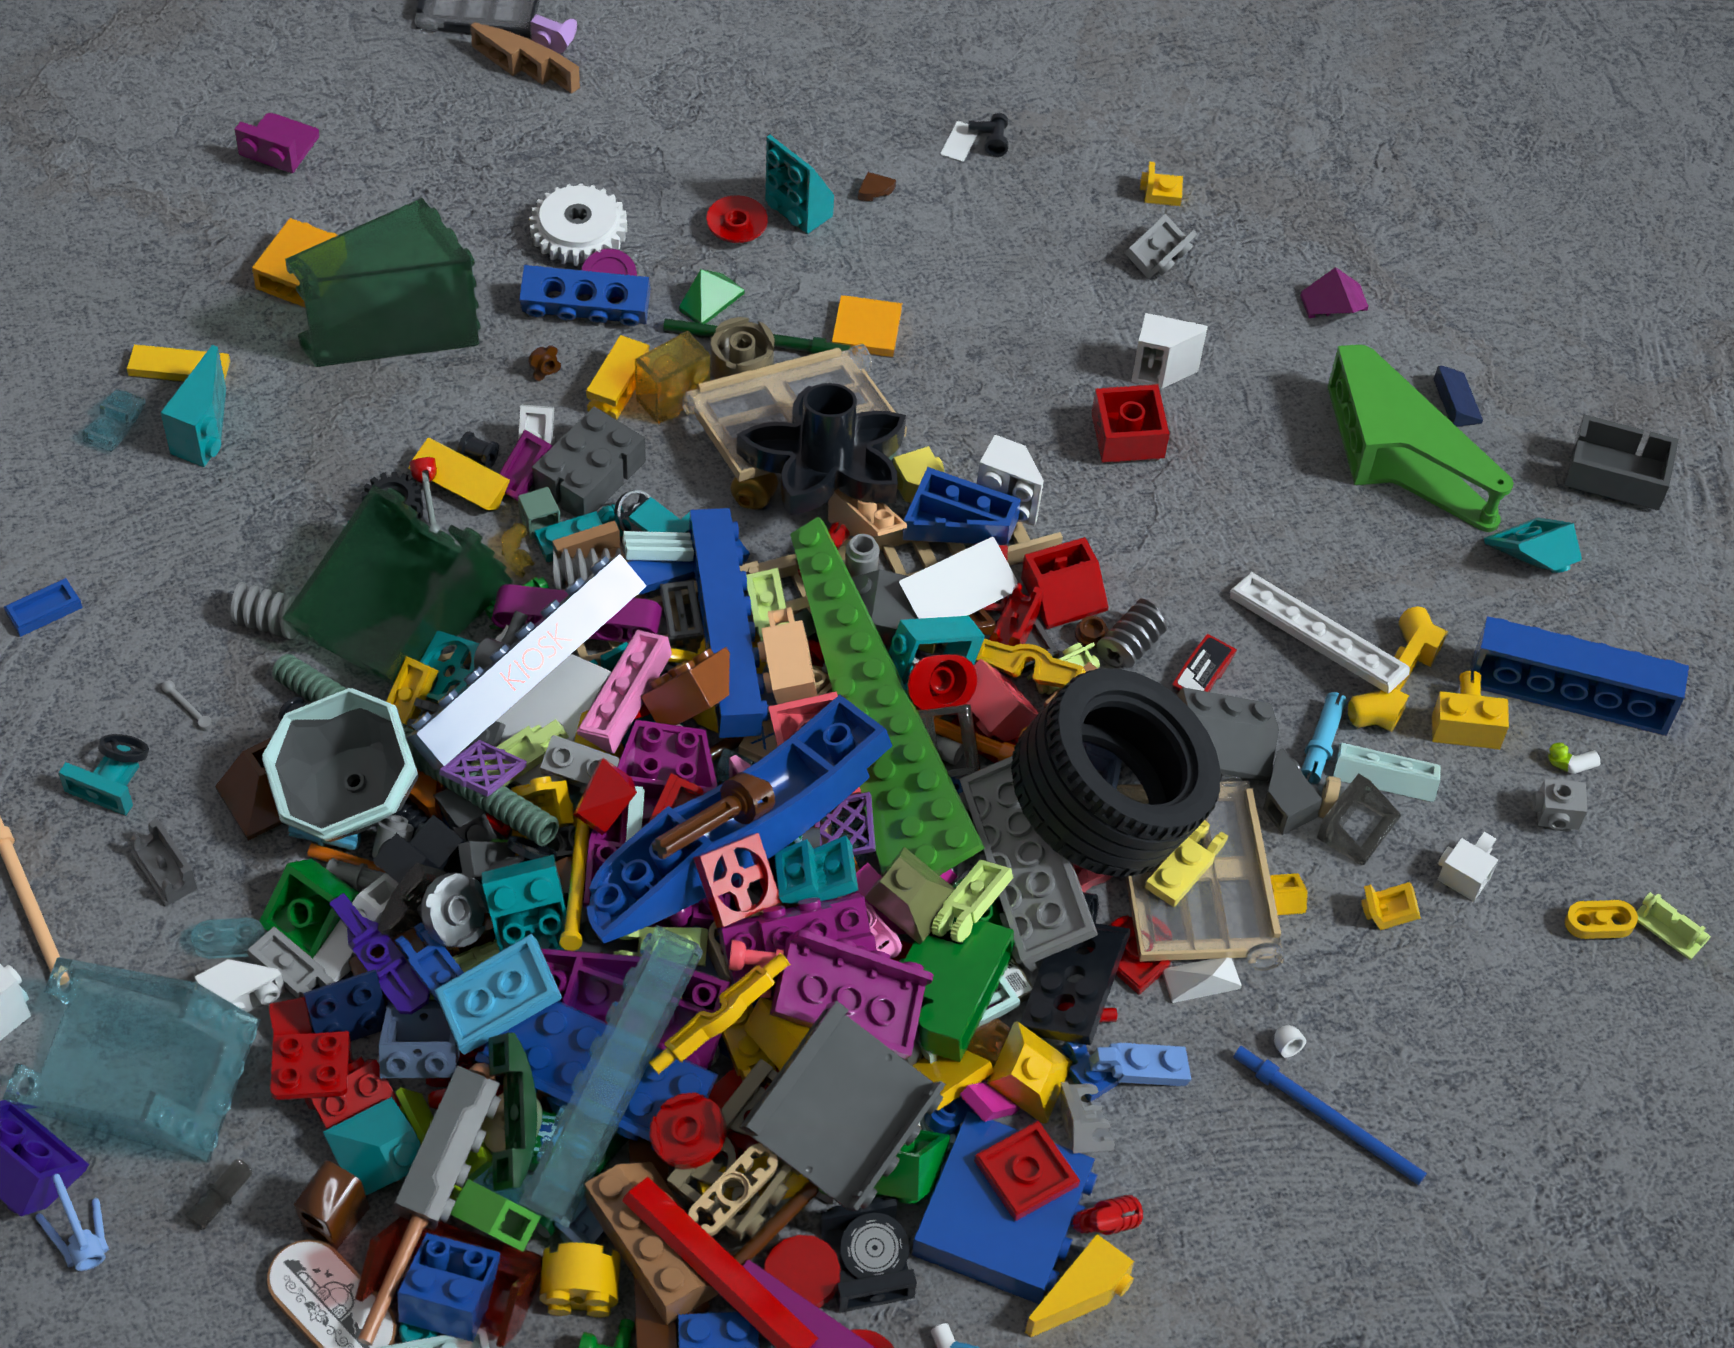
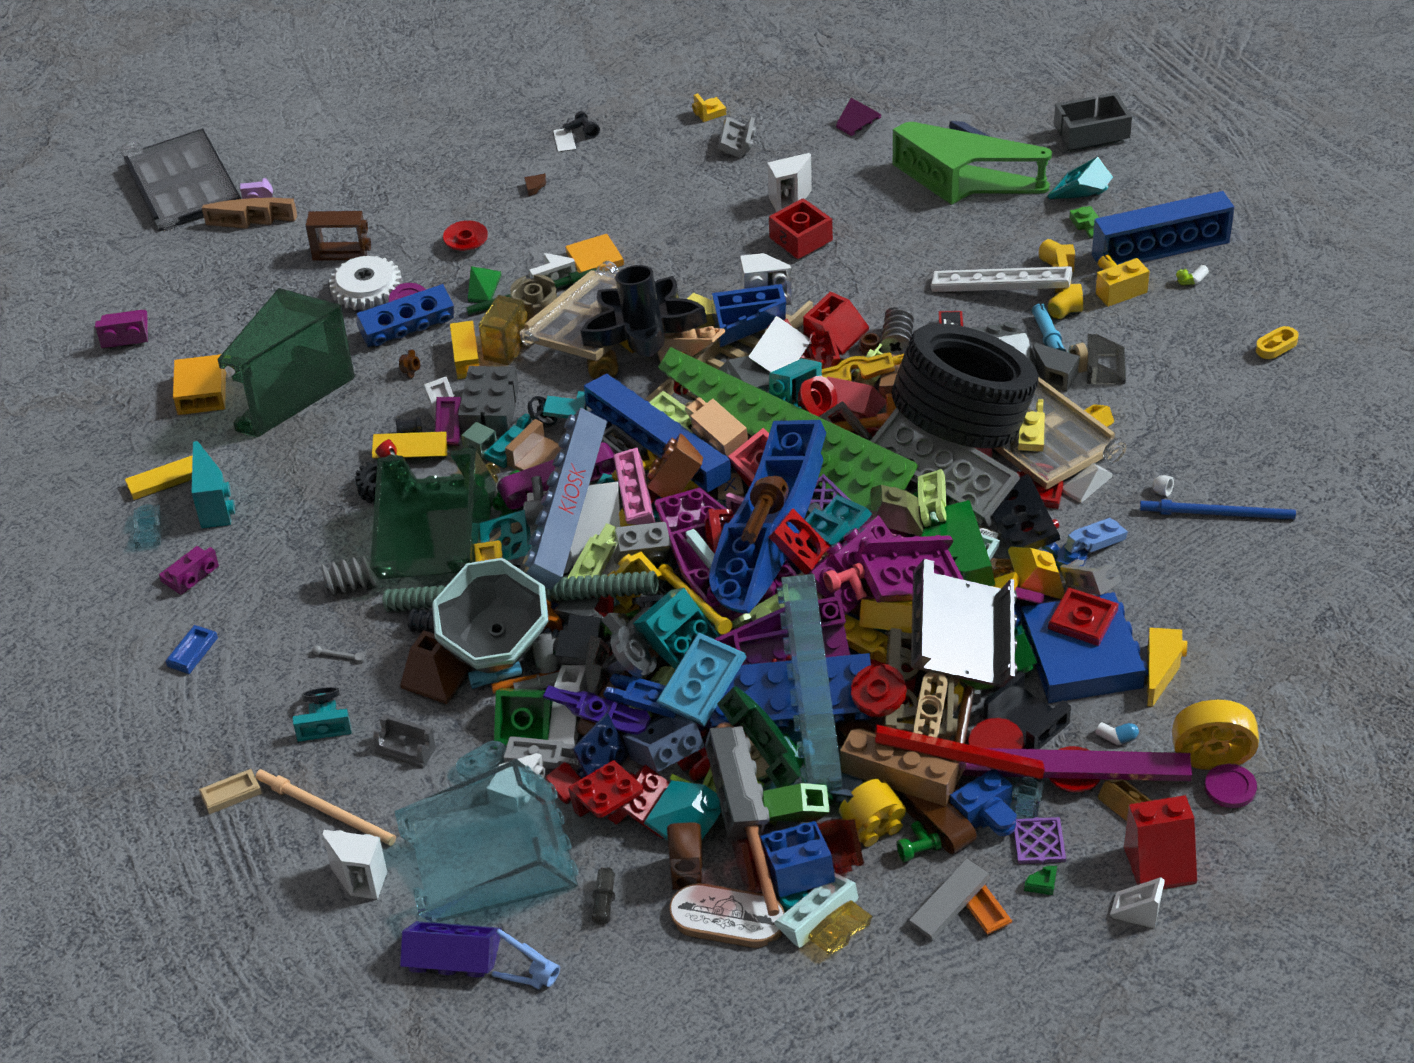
camera: 25 degrees left, 10 degrees down
(114, 502) = (189, 569): none -> magenta bracket
(516, 766) = (589, 577): medium lavender window -> none
(571, 569) = (537, 451): light grey piece -> none
(573, 120) = (337, 250): none -> reddish brown window
(605, 796) = (678, 542): red slope -> none
(657, 546) = (560, 419): light aqua tile -> none
(707, 1025) = (855, 606): yellow piece -> none
(795, 188) = (491, 197): teal slope -> none
(803, 324) = (555, 267): none -> white slope
(861, 555) = (710, 354): light grey brick -> none
(874, 1245) = (1026, 704): sticker -> none
(1108, 1216) = (1149, 615): red hinge -> none
(1388, 771) = (1109, 328): light aqua slope -> none
(1391, 905) = (1161, 391): yellow bracket -> none
(1468, 866) = (1184, 352): white brick -> none
(1503, 598) = (1084, 219): none -> bright green plate
(1560, 804) = (1208, 297): light grey brick -> none
(1671, 926) = (1327, 327): yellowish green hinge -> none

